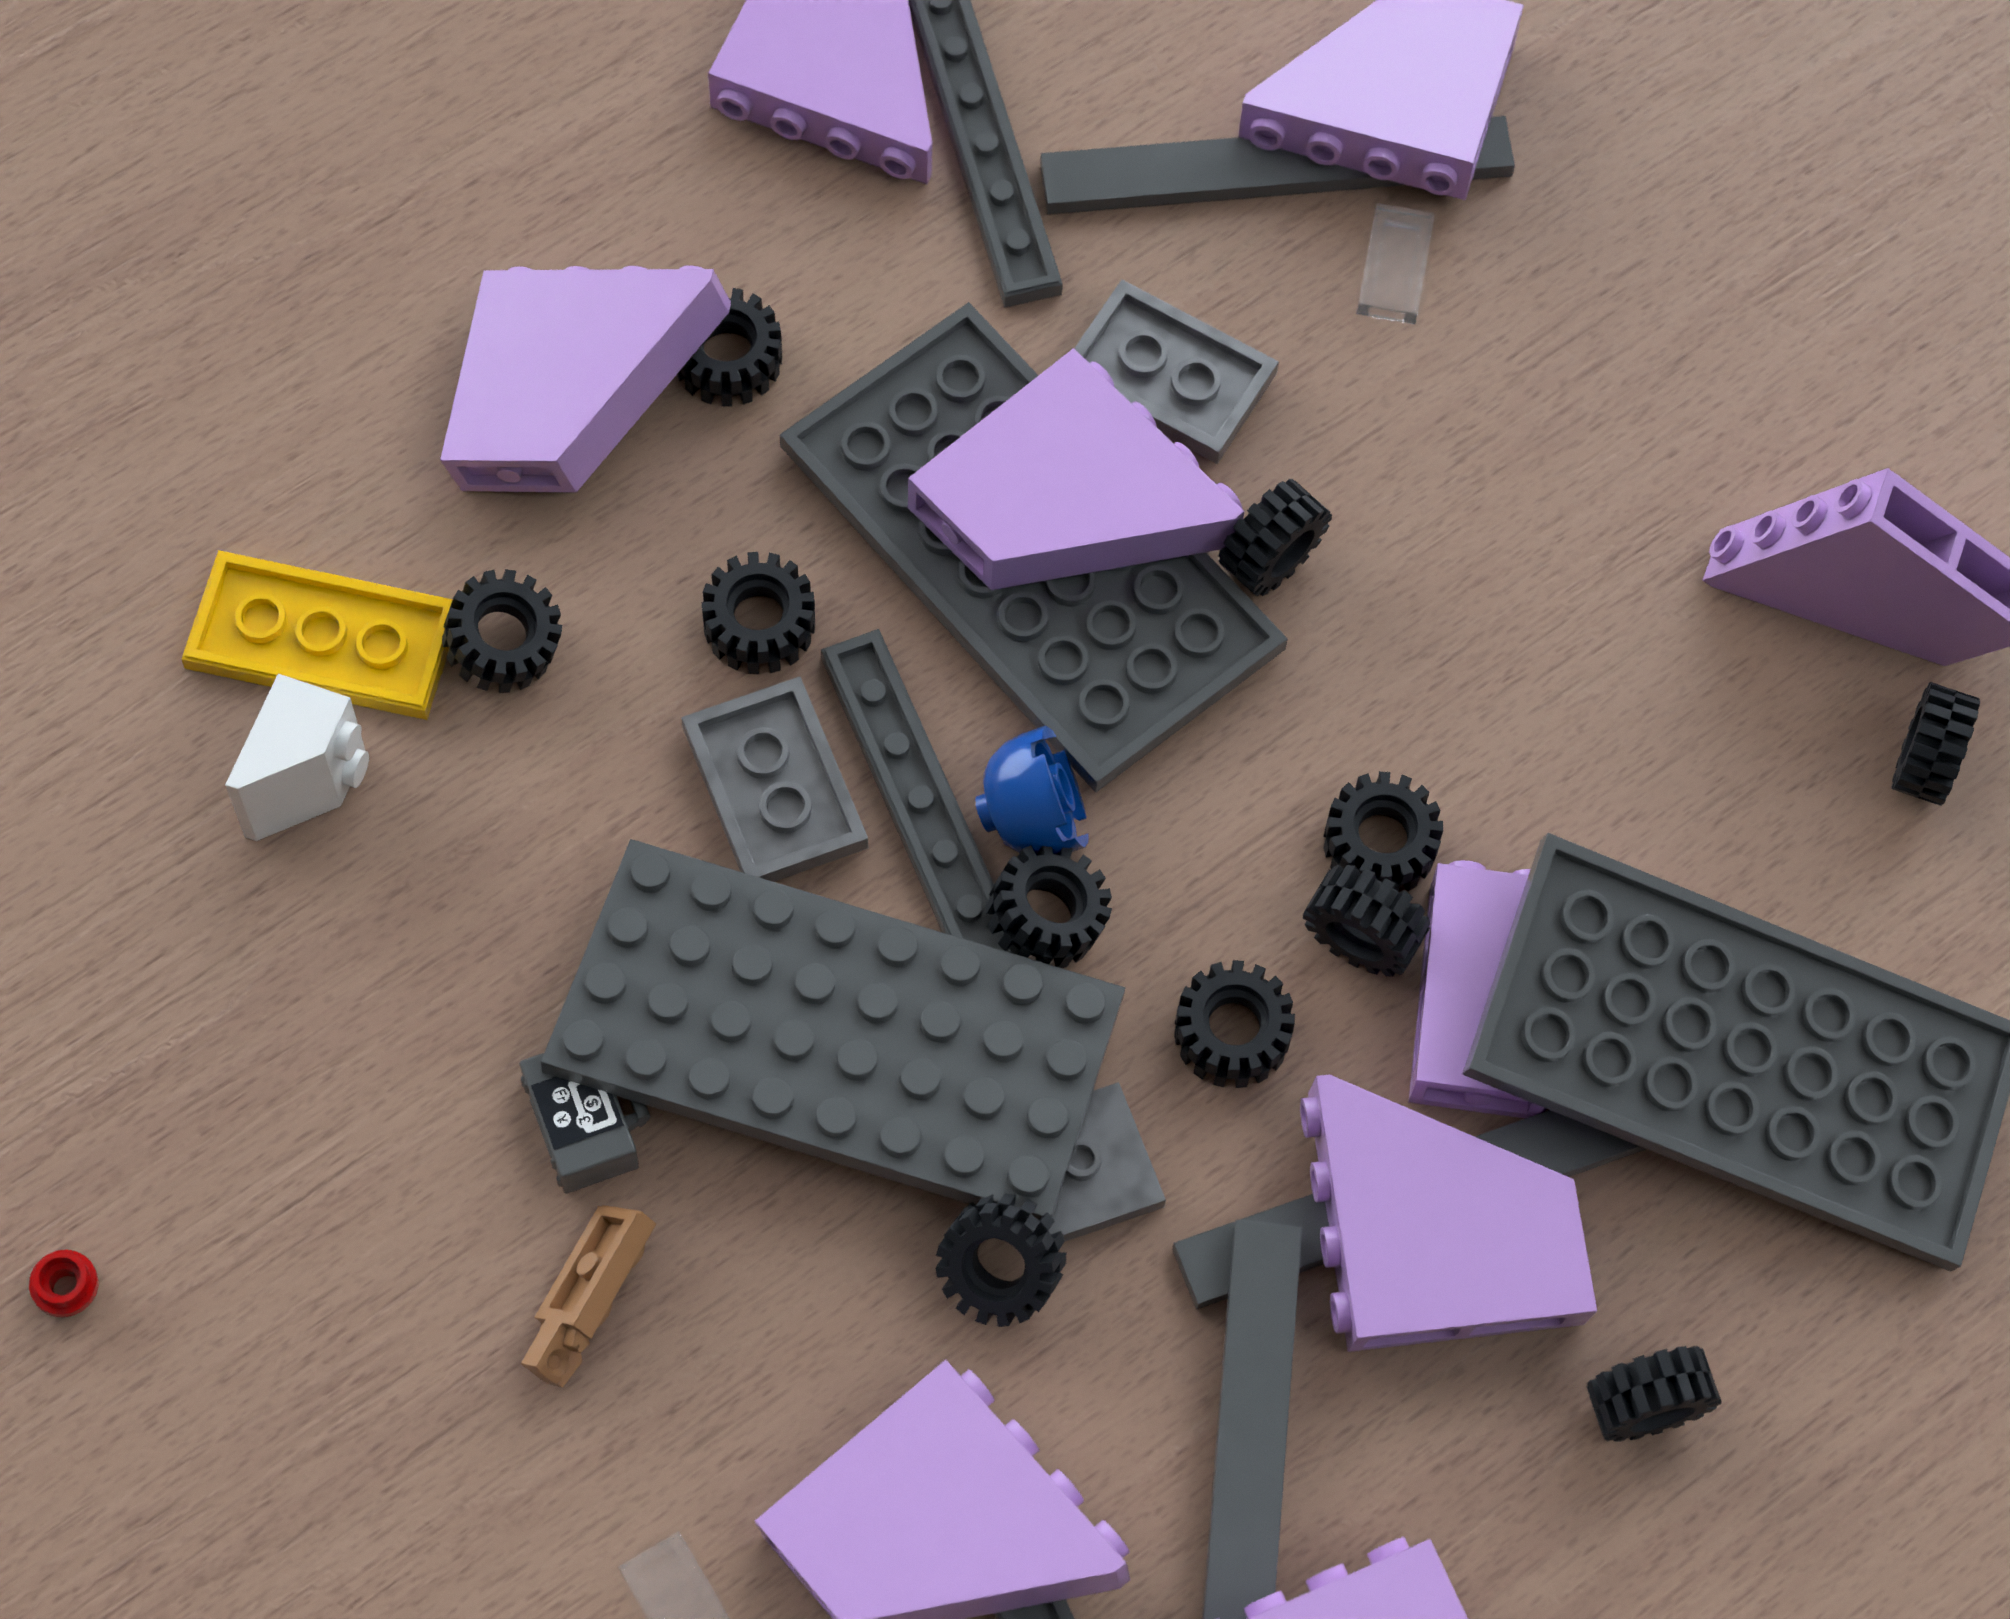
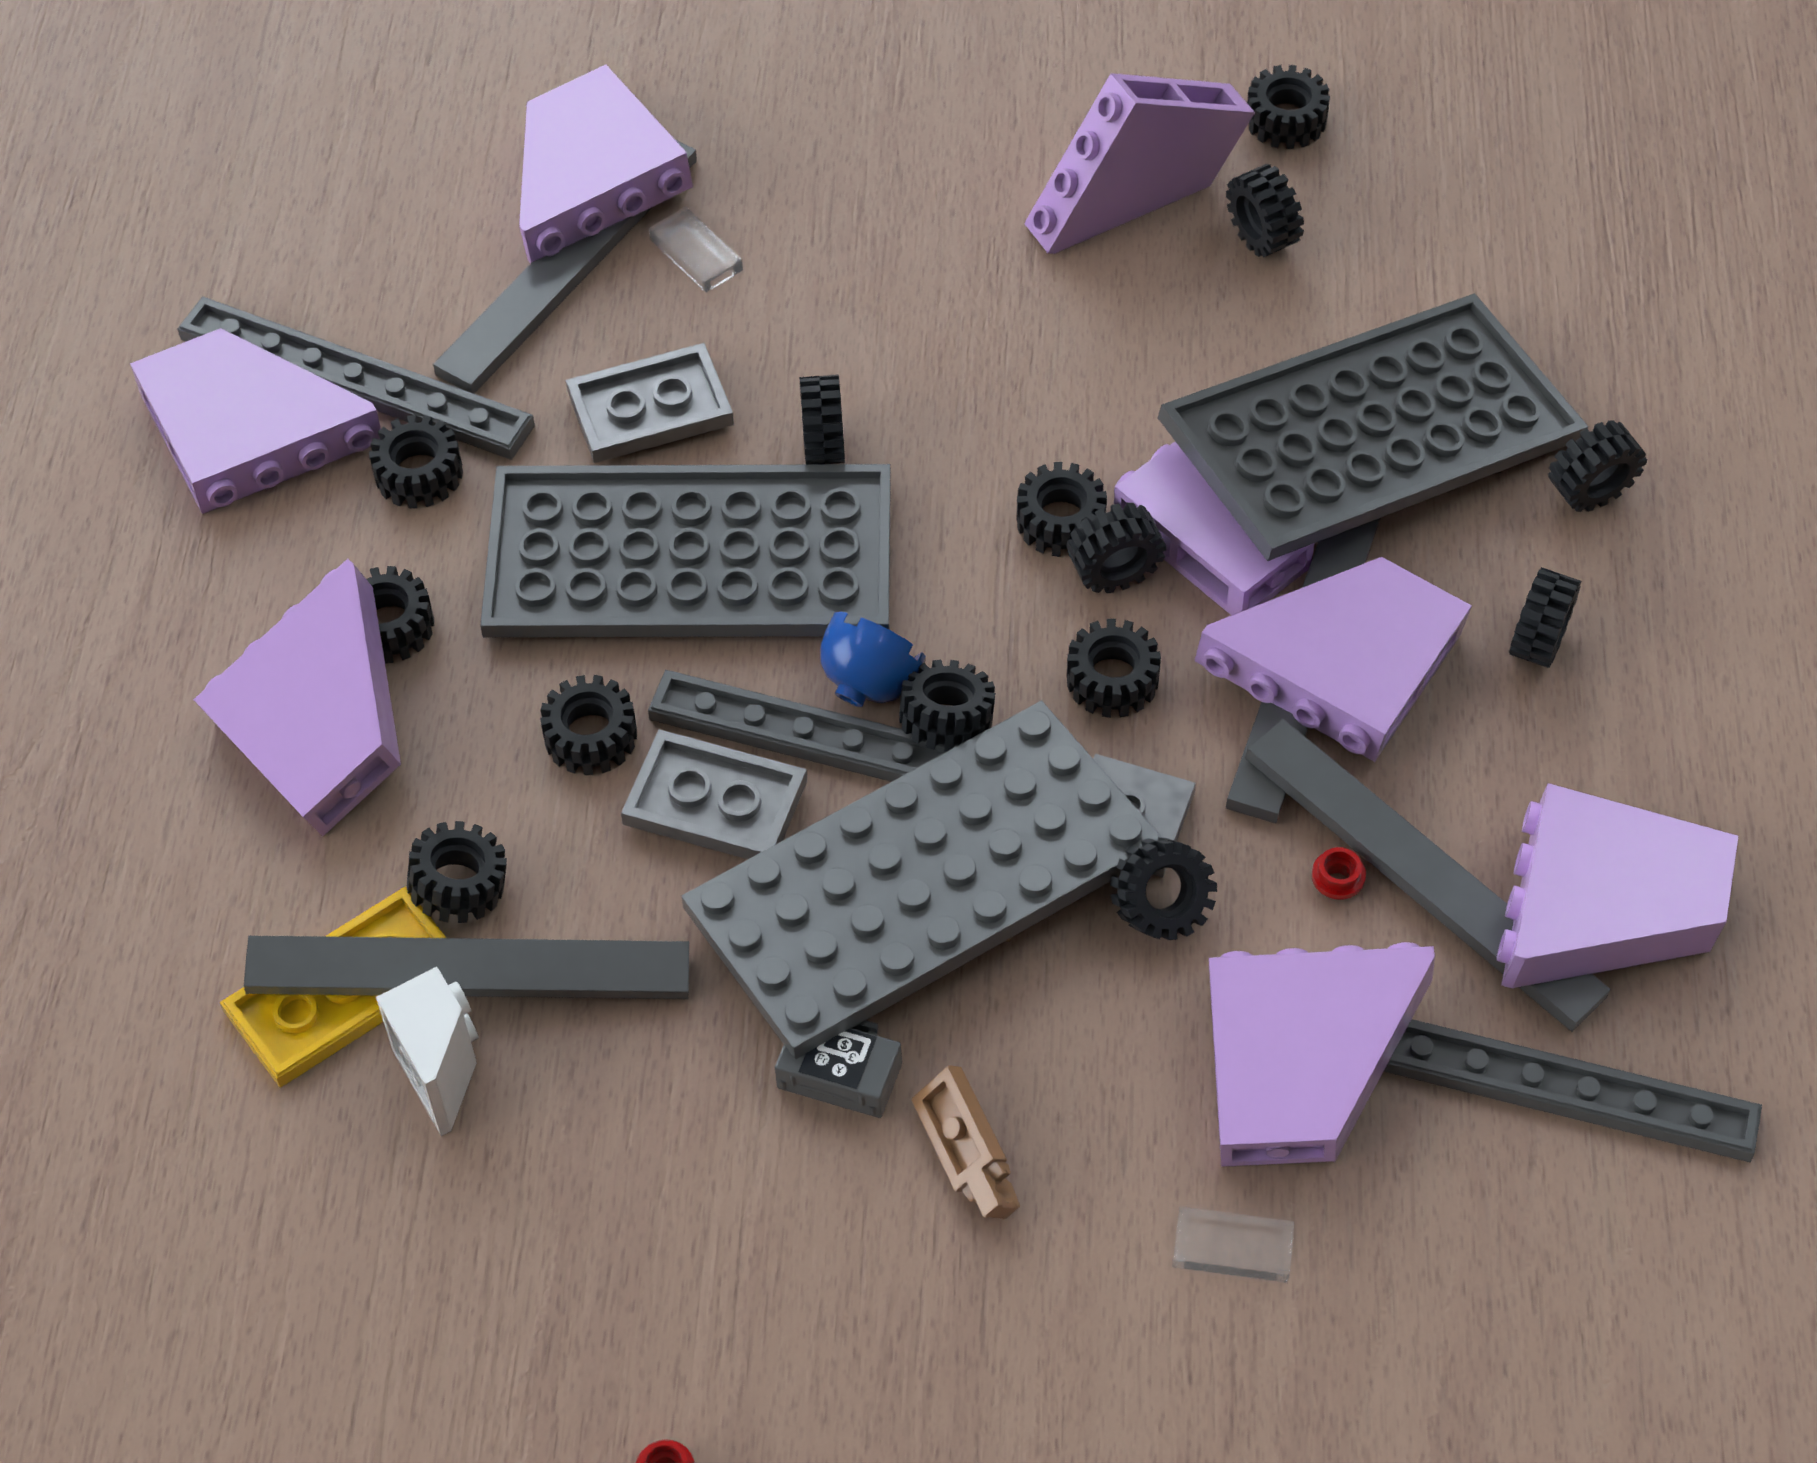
camera: 45 degrees left, 10 degrees down
(416, 724) = (478, 965): none -> dark grey tile
(917, 202) = (420, 482): none -> black tyre
(1069, 485) = (684, 493): lavender slope -> none
(1178, 1392) = (1338, 861): none -> red plate
(1902, 1311) = (1597, 466): none -> black tyre

